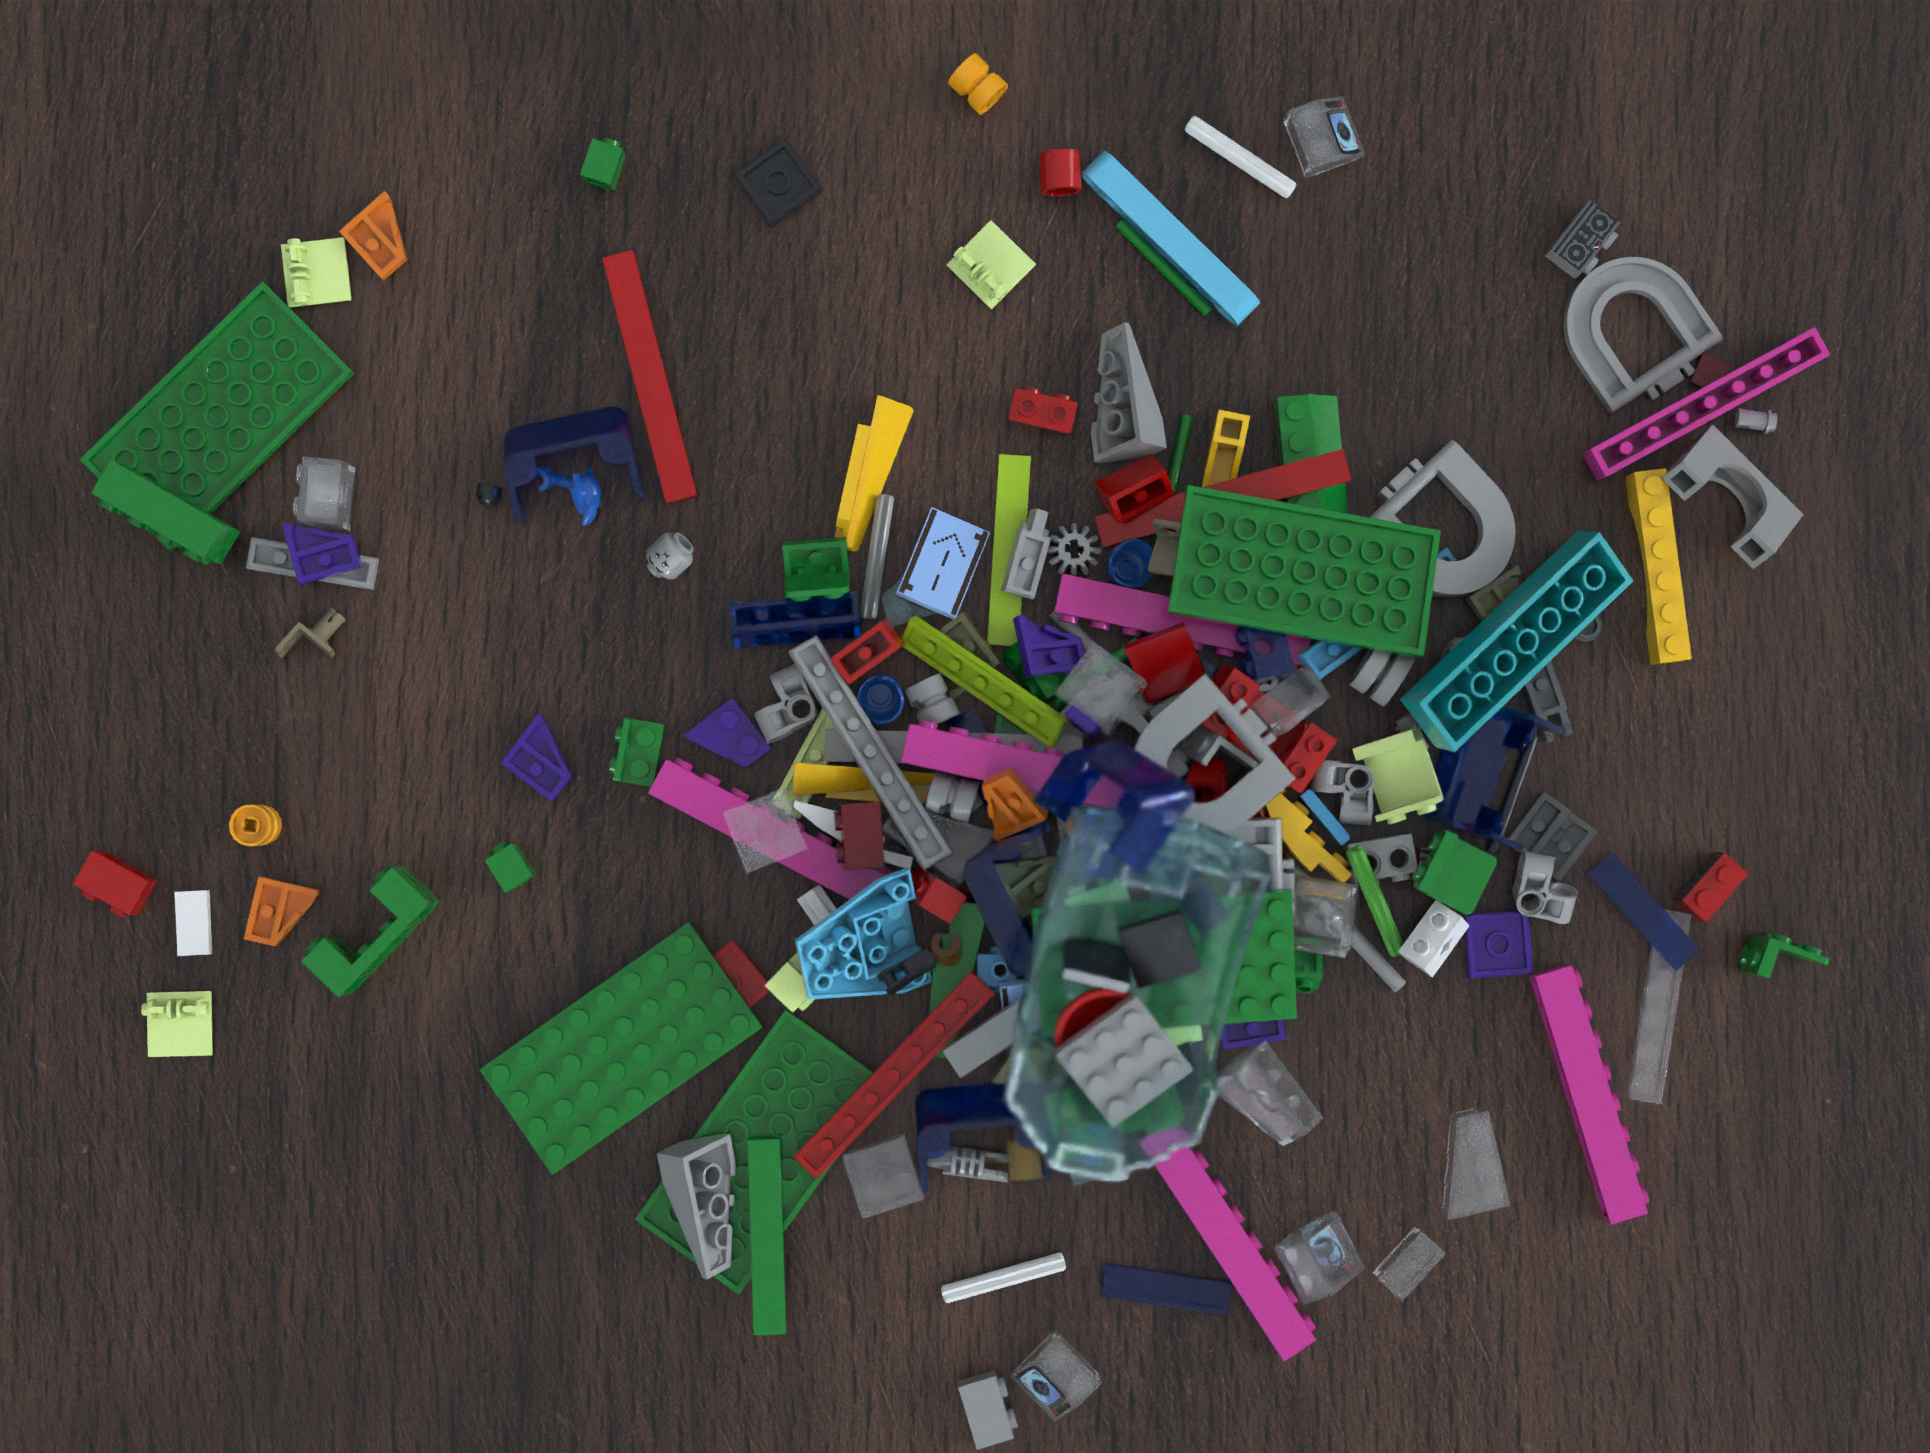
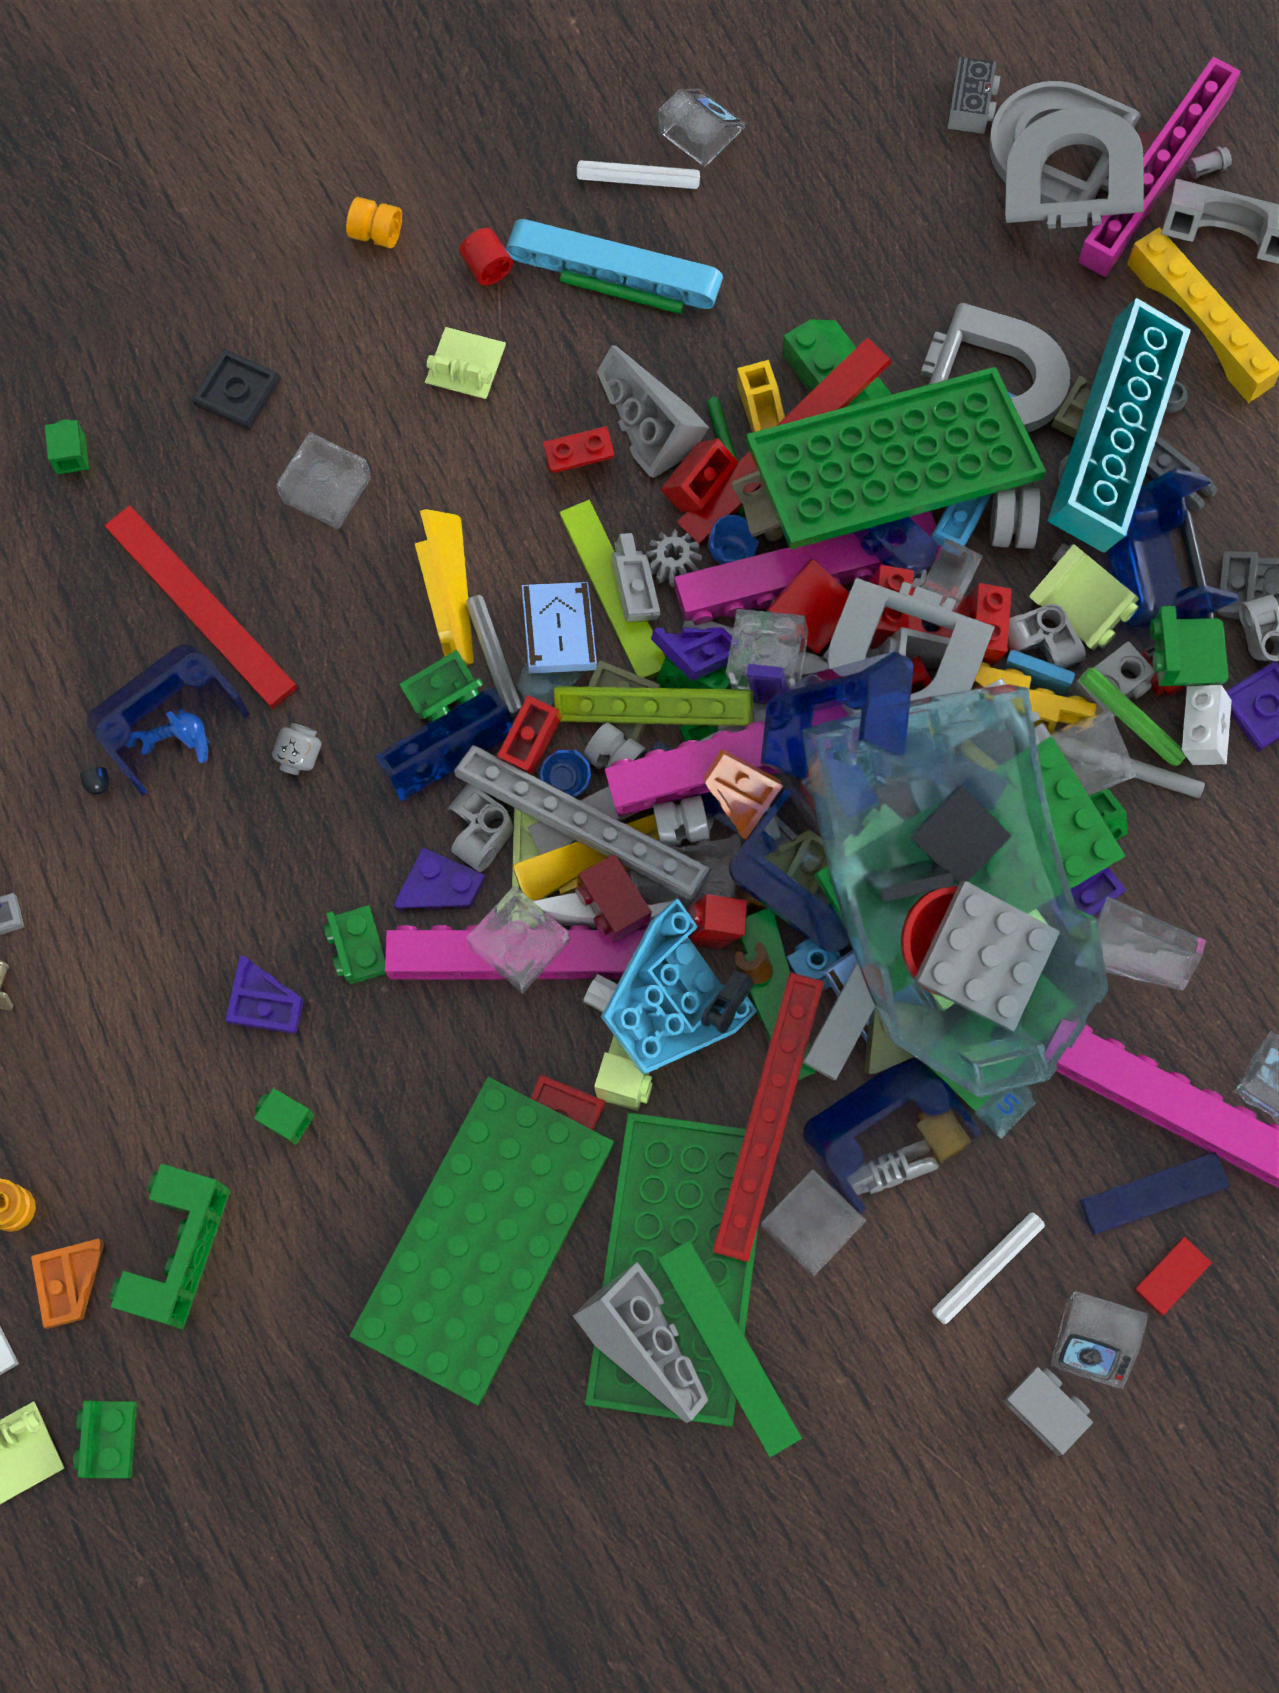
camera: 15 degrees left, 15 degrees down
(254, 1050) = (105, 1439): none -> green bracket
(809, 320) = (323, 480): none -> clear brick
(1142, 1359) = (1172, 1276): none -> red tile
(1614, 323) = (1070, 127): none -> light grey piece

